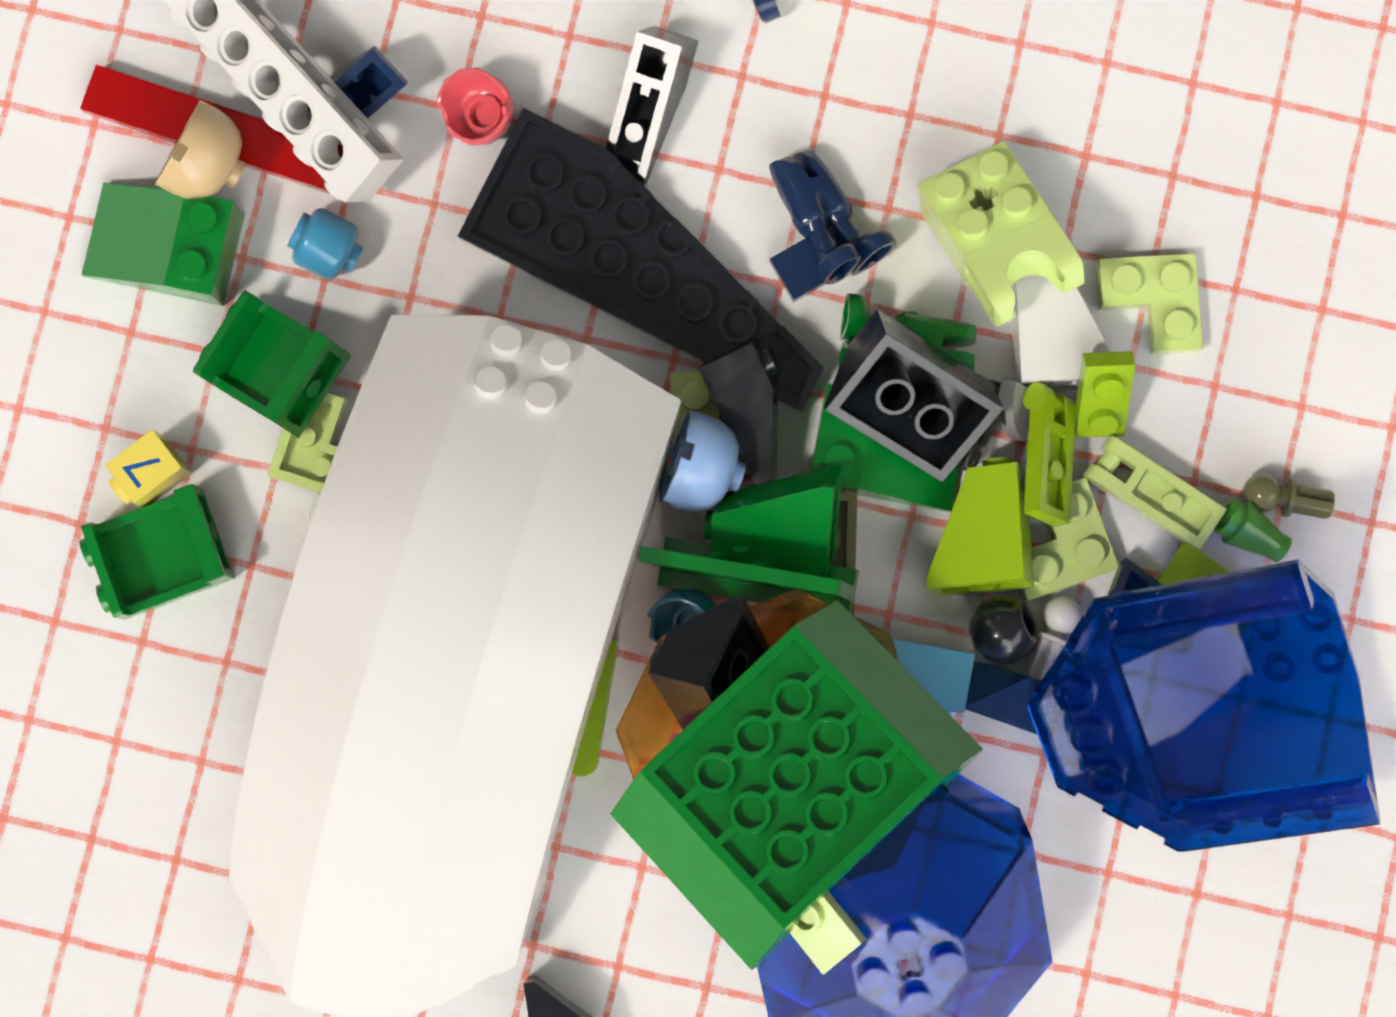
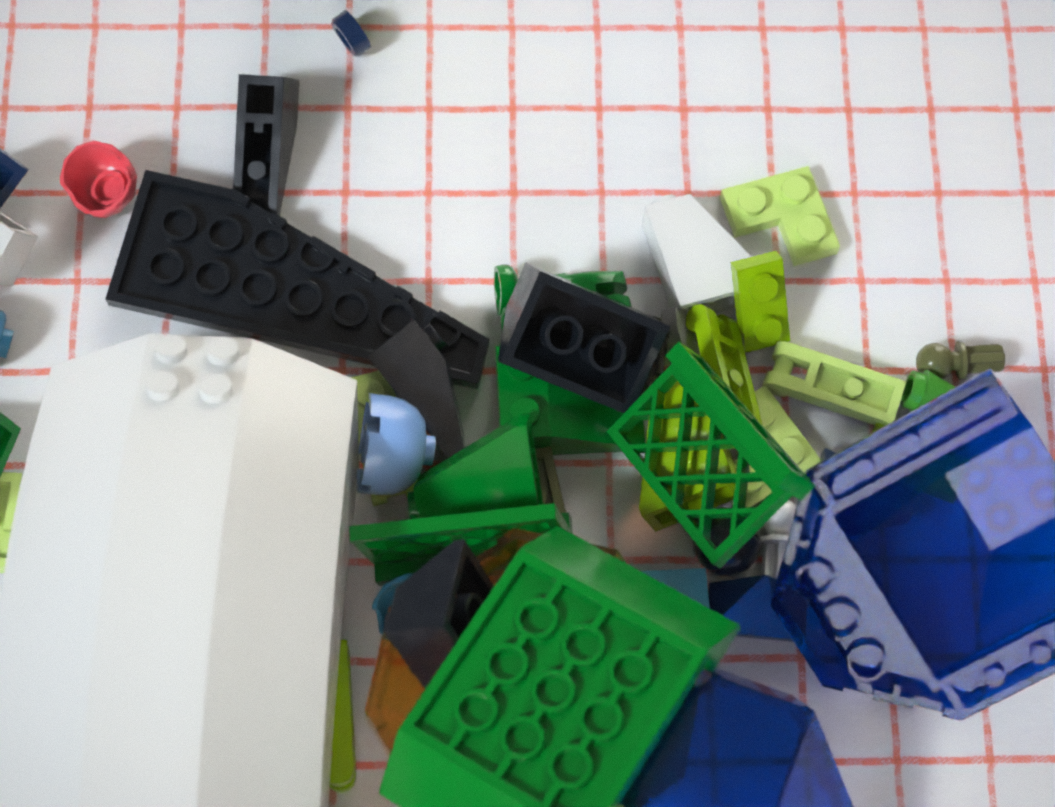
camera: 20 degrees left, 15 degrees down
(798, 269) = (446, 260): dark blue tile -> none
(821, 207) = (456, 207): dark blue piece -> none
(997, 229) = (620, 176): yellowish green brick -> none
(1043, 539) = (743, 433): none -> green fence

